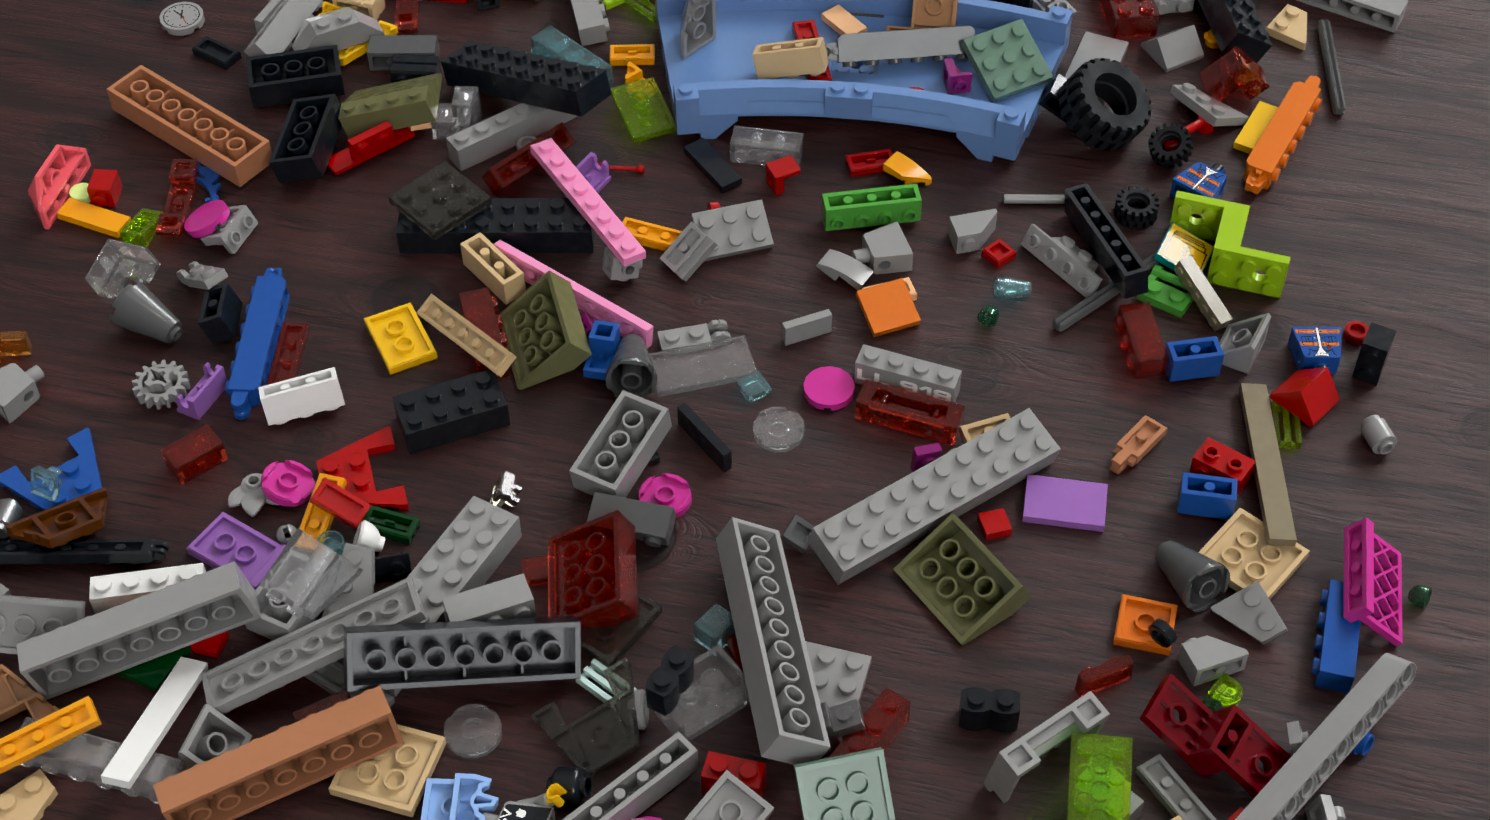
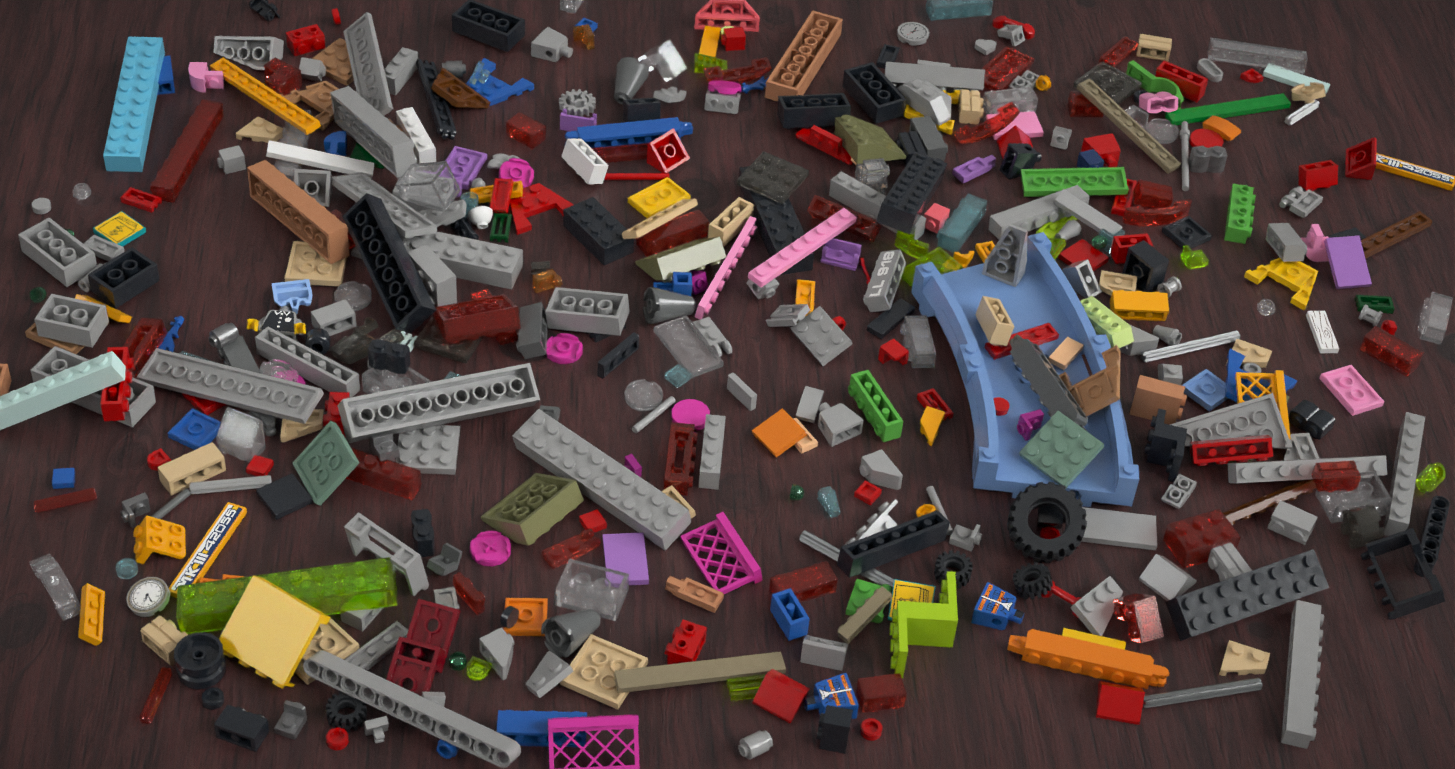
camera: 70 degrees right, 5 degrees down
(120, 700) = (336, 143): none -> blue brick
(211, 646) = (386, 175): red tile -> none
(318, 308) = (666, 152): none -> red slope
(348, 344) = (636, 176): none -> red bar
(474, 25) = (974, 168): none -> medium lavender hinge
(524, 759) = (334, 317): none -> light grey brick
(533, 482) = (546, 280): none -> clear orange bracket
(597, 116) = (908, 245): none -> clear neon green slope
(654, 149) = (884, 281): none -> light grey brick
(817, 425) = (652, 415): none -> light grey bar
(1020, 643) = (490, 548): none -> dark pink tile
(1038, 556) = (571, 548): none -> clear red hinge
(1043, 694) = (446, 561): none -> dark grey bracket
(1045, 209) = (925, 509): none -> light orange tile
(1080, 385) = (734, 544): none -> dark pink fence
(1093, 177) = (965, 537): none -> light grey bracket
(1120, 705) = (446, 597): none -> bracket
(1125, 539) = (593, 588): none -> clear brick
(1207, 496) = (649, 633): blue brick -> none
(1313, 305) = (881, 693): none -> clear red brick
(1336, 126) = (1119, 702): none -> red slope

